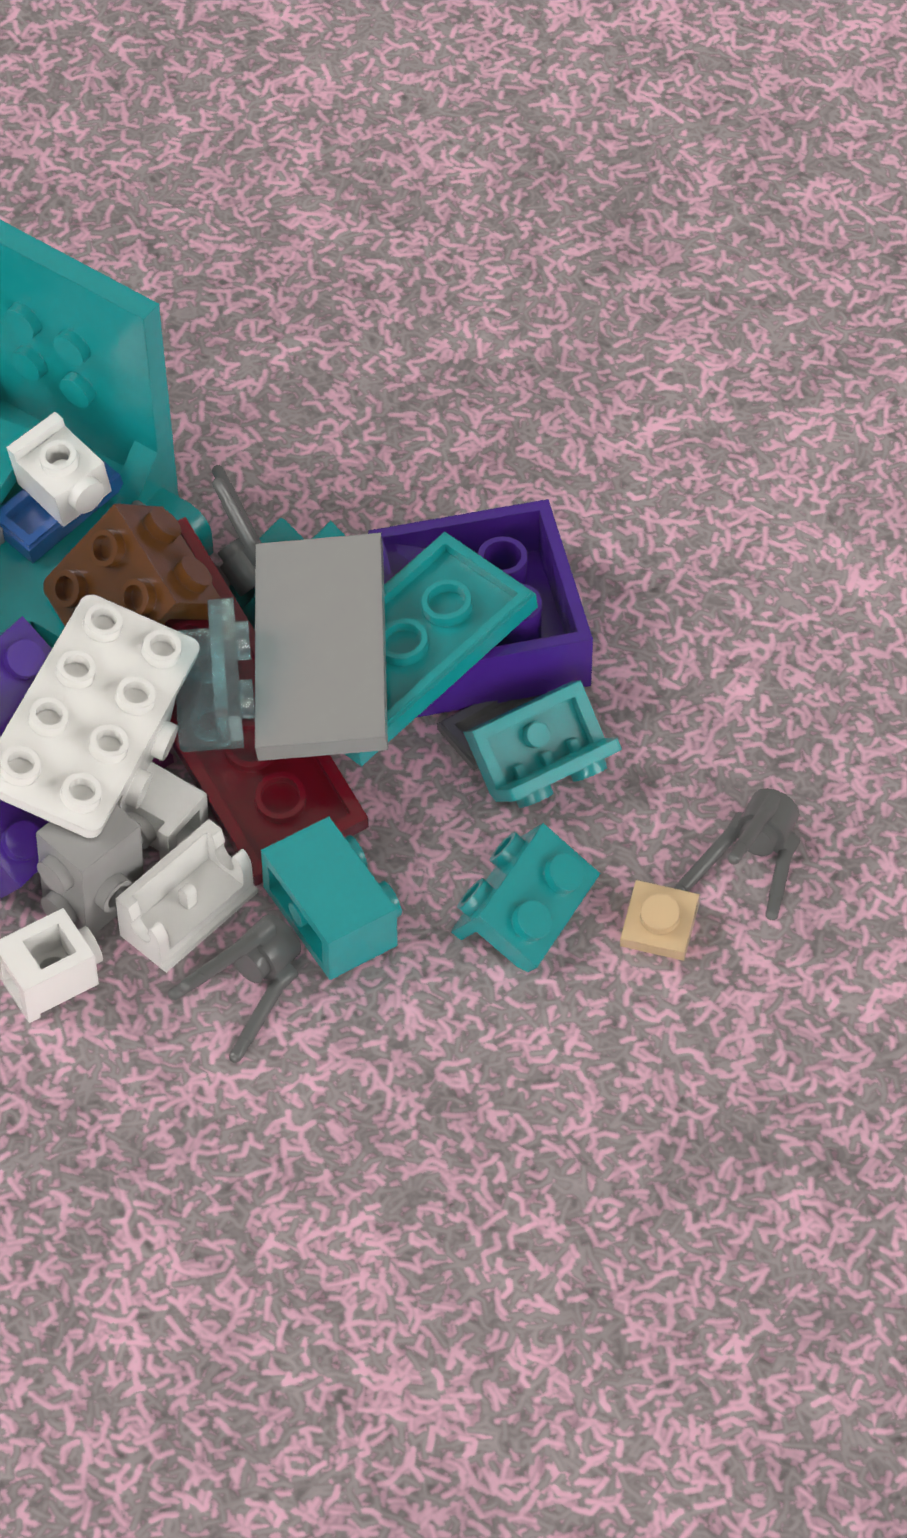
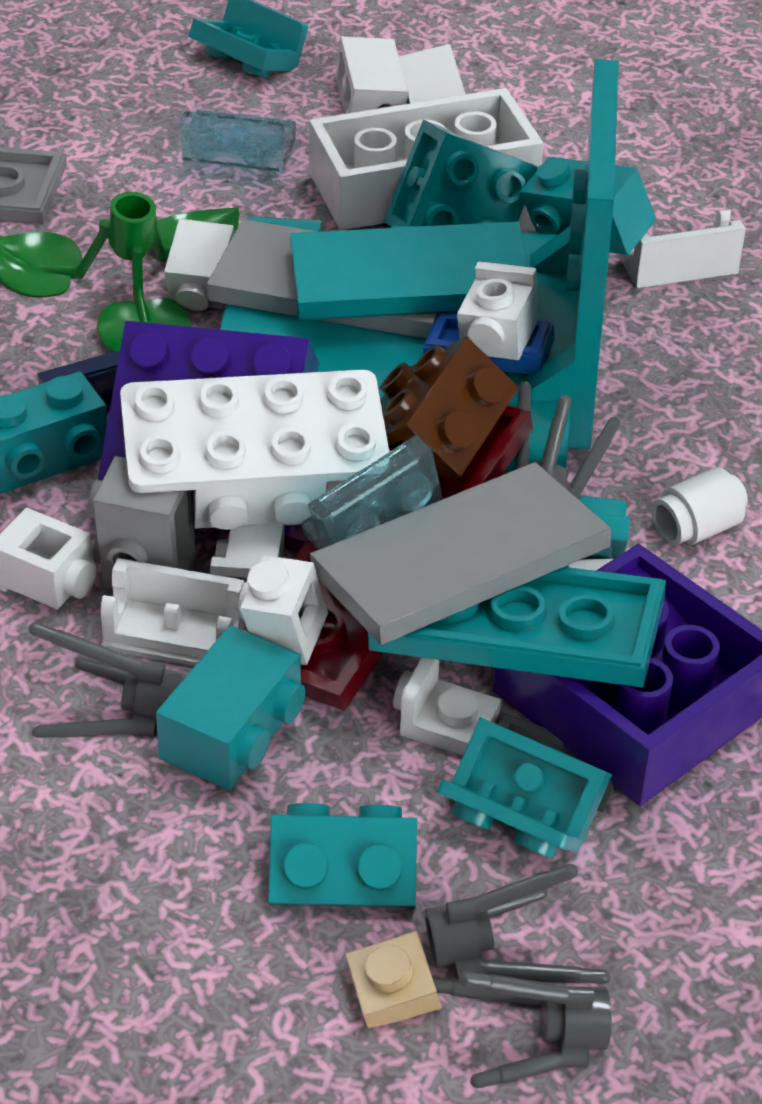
camera: 60 degrees right, 10 degrees down
(270, 803) = (277, 598): none -> white brick
(312, 474) = (700, 507): none -> white brick
(418, 761) = (439, 710): none -> white bracket
(649, 851) = (464, 930): none -> dark grey plant

